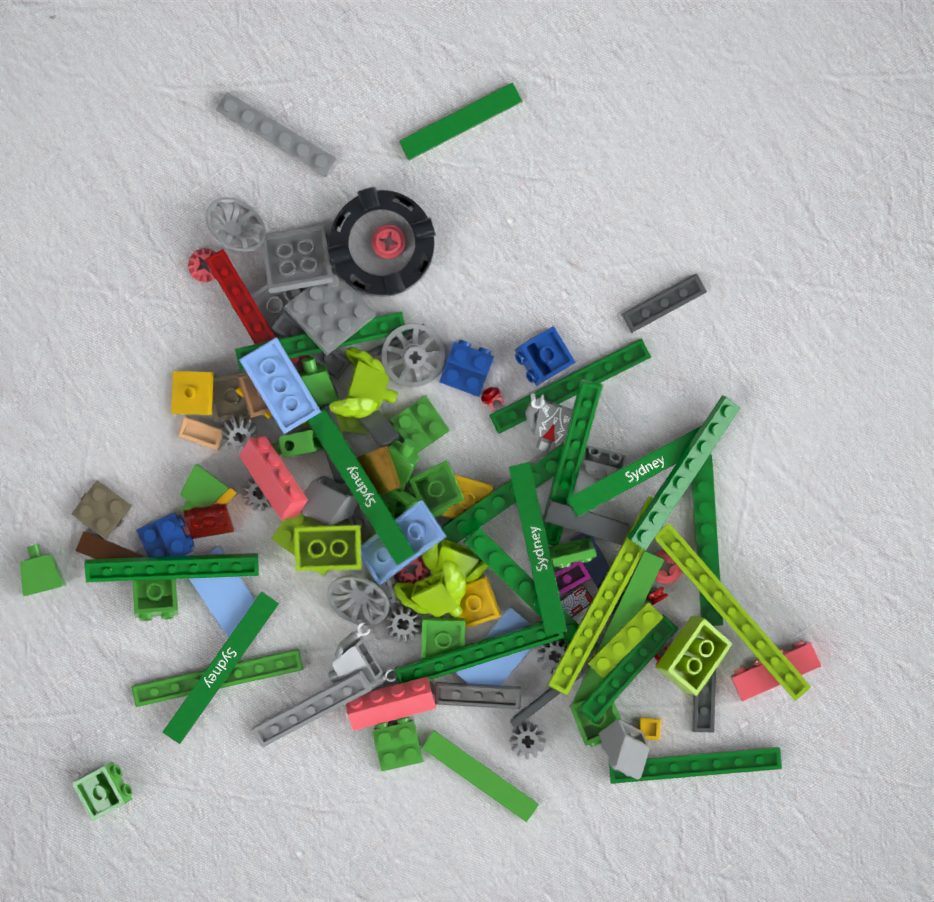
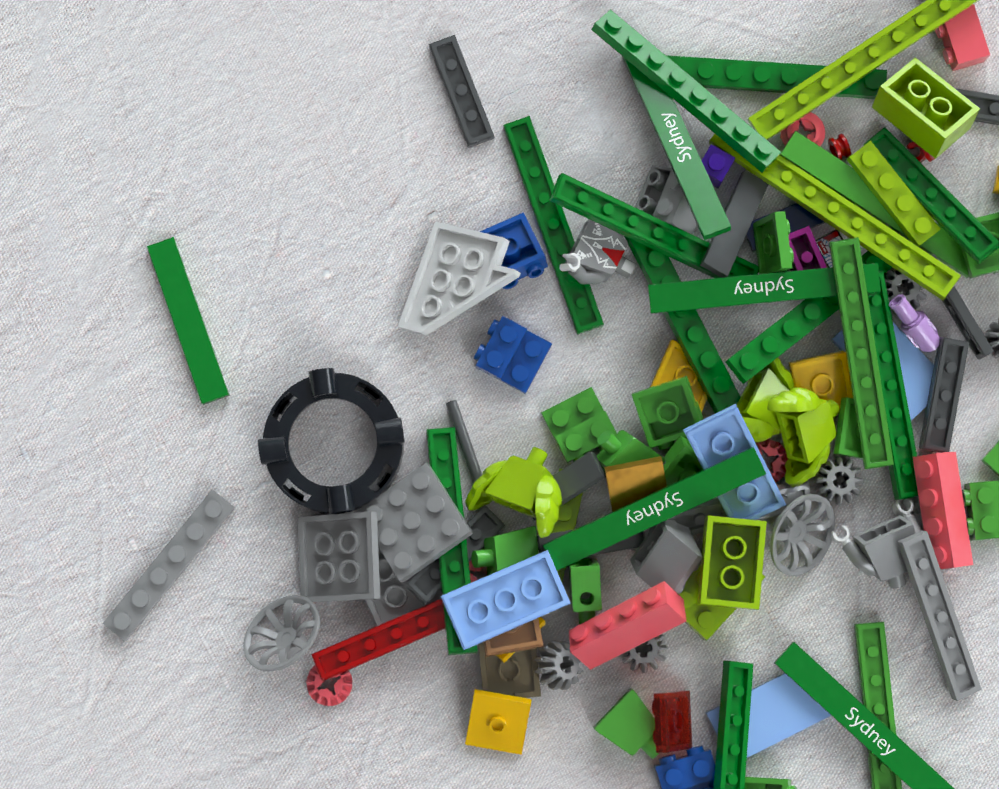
camera: 80 degrees left, 5 degrees down
(200, 433) = (552, 717): light nougat tile -> none
(227, 496) = (643, 692): yellow tile -> none
(383, 233) = (326, 423): coral gear -> none
(413, 355) = (486, 421): light grey wheel -> none
(490, 395) = (553, 328): red plate -> none
(498, 627) = (861, 353): none -> bright green tile
(518, 316) = (454, 275): none -> white wing
(527, 667) = (915, 325): none -> lavender arm
(630, 502) = (717, 164): none -> dark purple brick

